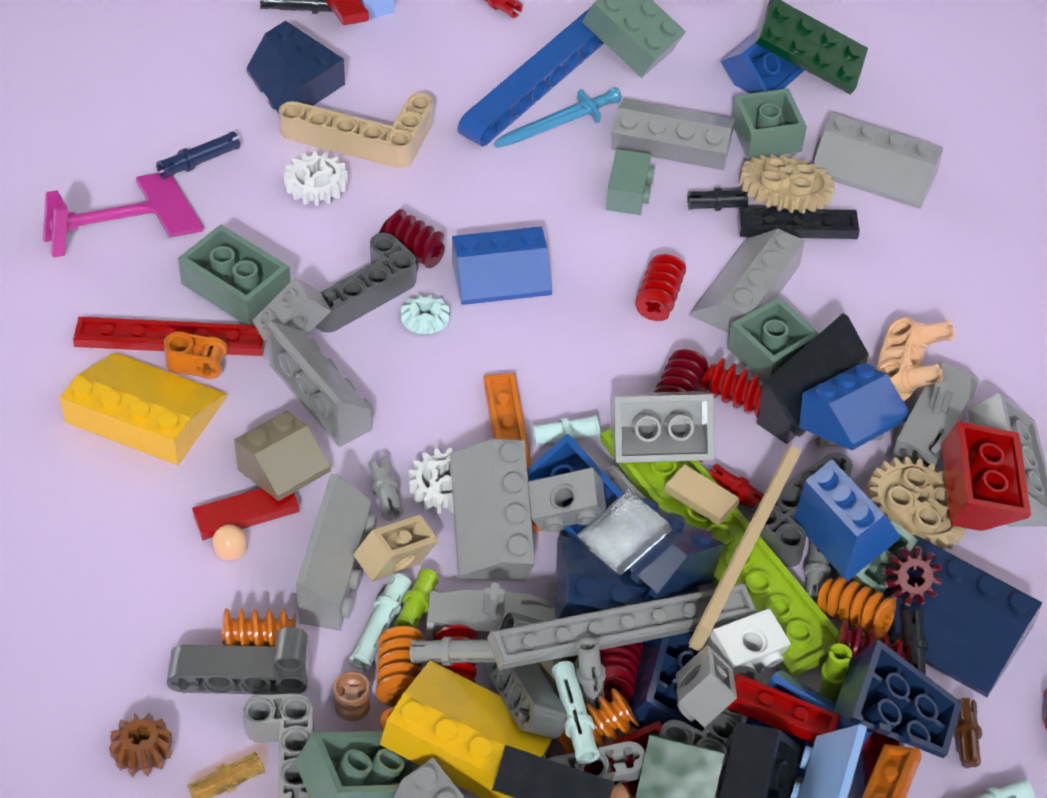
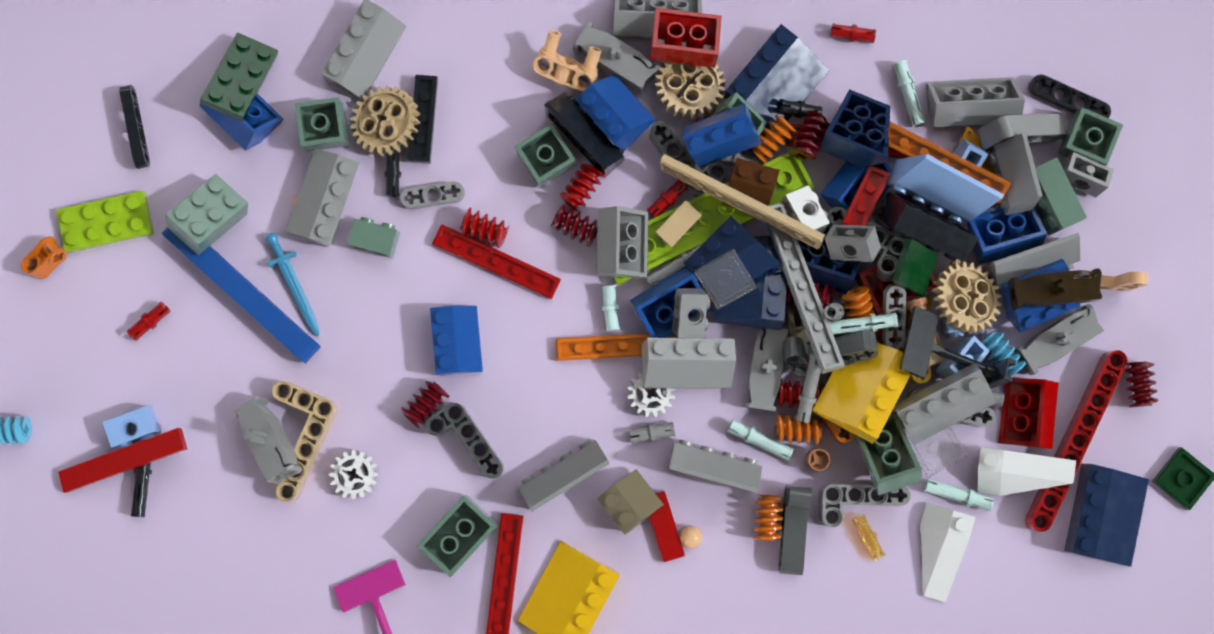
camera: 85 degrees left, 35 degrees up
(141, 744) = (849, 597): dark orange gear -> none
(188, 159) = (322, 566): dark blue pin -> none
(193, 355) = (529, 561): orange piece -> none
(294, 67) = (229, 491): dark blue wedge -> none
(294, 306) = (506, 493): light grey brick -> none
(356, 88) = (264, 437): none -> light grey piece
(395, 547) = (715, 427): tan brick -> none
(417, 599) = (746, 416): lime pin -> none
(425, 323) = (505, 398): light aqua gear -> none
(613, 312) = (496, 261): none -> red tile
(692, 249) = (447, 188): none -> light grey beam
(751, 278) = (480, 163): light grey slope -> none
(779, 574) = (753, 180): none -> reddish brown slope
(834, 671) = (826, 157): lime pin -> none
(923, 574) = (765, 101): dark red gear -> none
(968, 734) = (866, 89): reddish brown axle -> none

